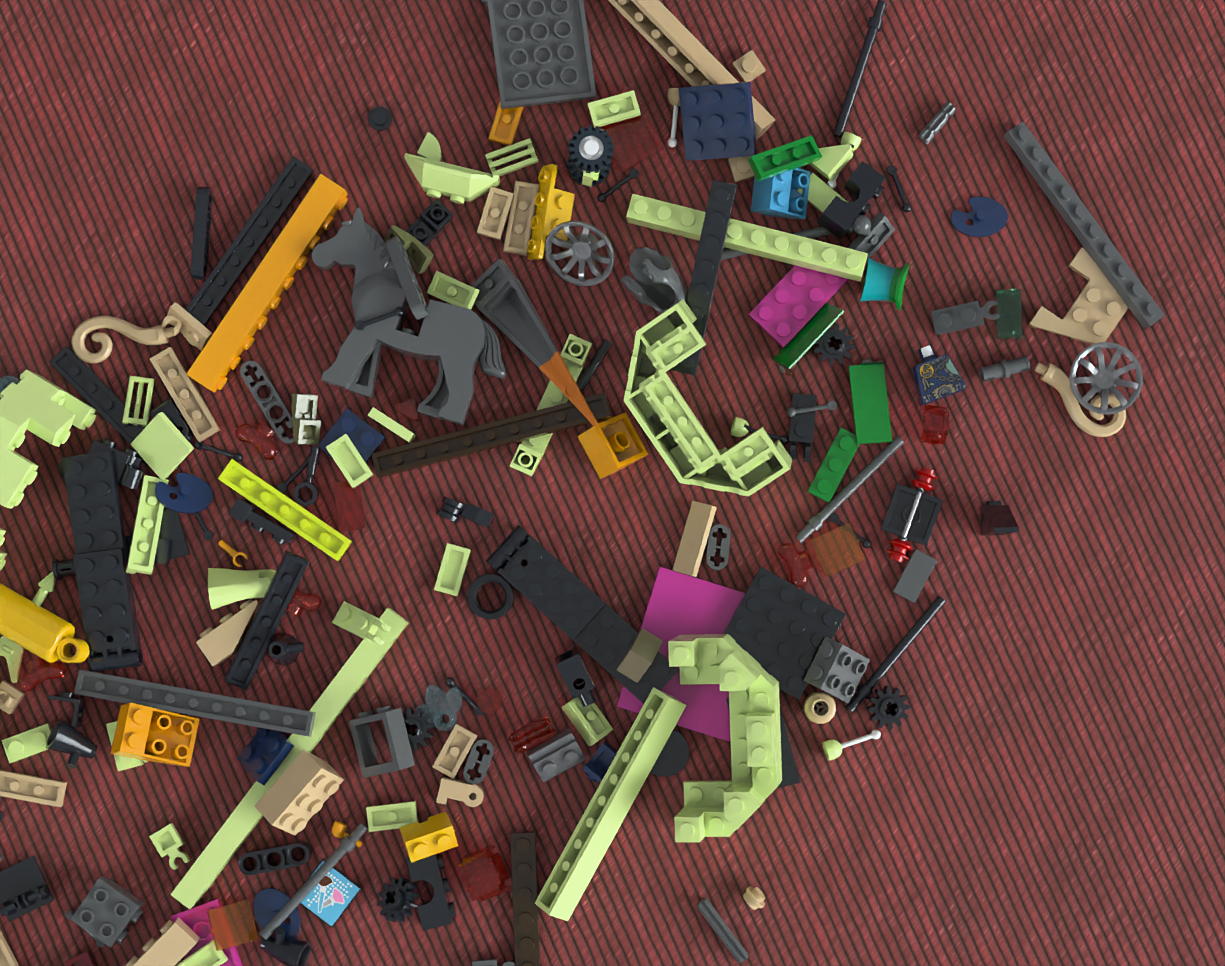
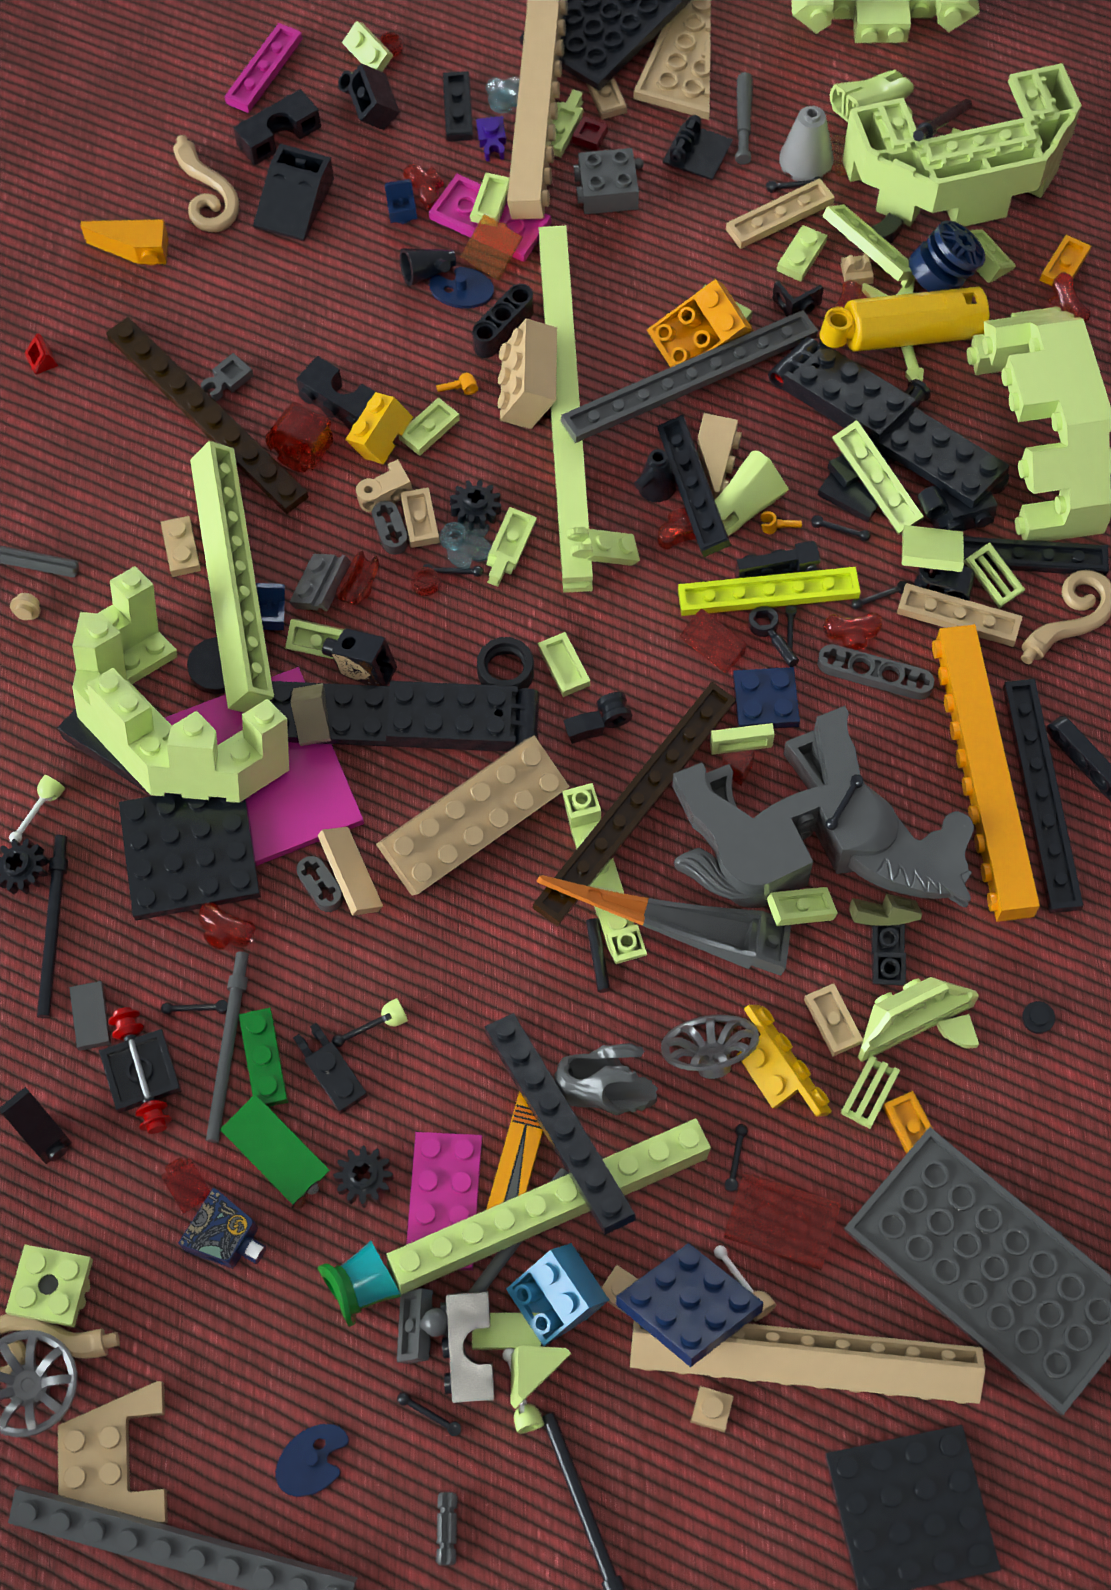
camera: 140 degrees right, 20 degrees down
(69, 740) = (766, 272): black piece -> none
(168, 842) = (606, 267): yellowish green plate -> none
(185, 323) = (1004, 669): tan plate -> none
(191, 493) = (865, 539): dark blue piece -> none
(265, 754) = (586, 378): dark blue plate -> none
(304, 422) = (828, 679): olive slope -> none
(331, 895) = (432, 332): tile -> none
(347, 844) = (448, 372): dark grey bar -> none
(349, 461) = (750, 673): yellowish green tile -> none
(396, 737) = (492, 467): dark grey window -> none
(397, 900) = (362, 365): black gear -> none
(407, 277) = (856, 864): dark grey beam -> none
(415, 682) = (509, 544): none -> yellowish green hinge
(520, 218) = (805, 1039): tan tile -> none
(590, 156) = (787, 1136): black plate -> none
(595, 507) = (472, 815): none -> tan brick
(612, 445) = (507, 892): light orange slope -> none
(614, 109) = (811, 1223): yellowish green plate -> none
(621, 863) = (180, 546): none -> tan plate
(675, 427) = (463, 934): yellowish green brick -> none
(743, 283) = (517, 1155): none -> light orange tile
(784, 158) = (579, 1316): green plate -> none
(807, 337) = (397, 1159): green piece -> none
(828, 707) = (91, 811): tan head -> none
(831, 406) = (313, 1108): dark grey hinge -> none
(836, 669) = (100, 853): dark grey brick -> none
(838, 549) = (192, 978): clear orange piece -> none
(962, 317) = (243, 1322): dark grey plate -> none
(1004, 368) = (152, 1306): dark grey pin -> none
(1010, 310) = (190, 1369): clear green hinge -> none
(1054, 423) = (50, 1286): none -> yellowish green piece

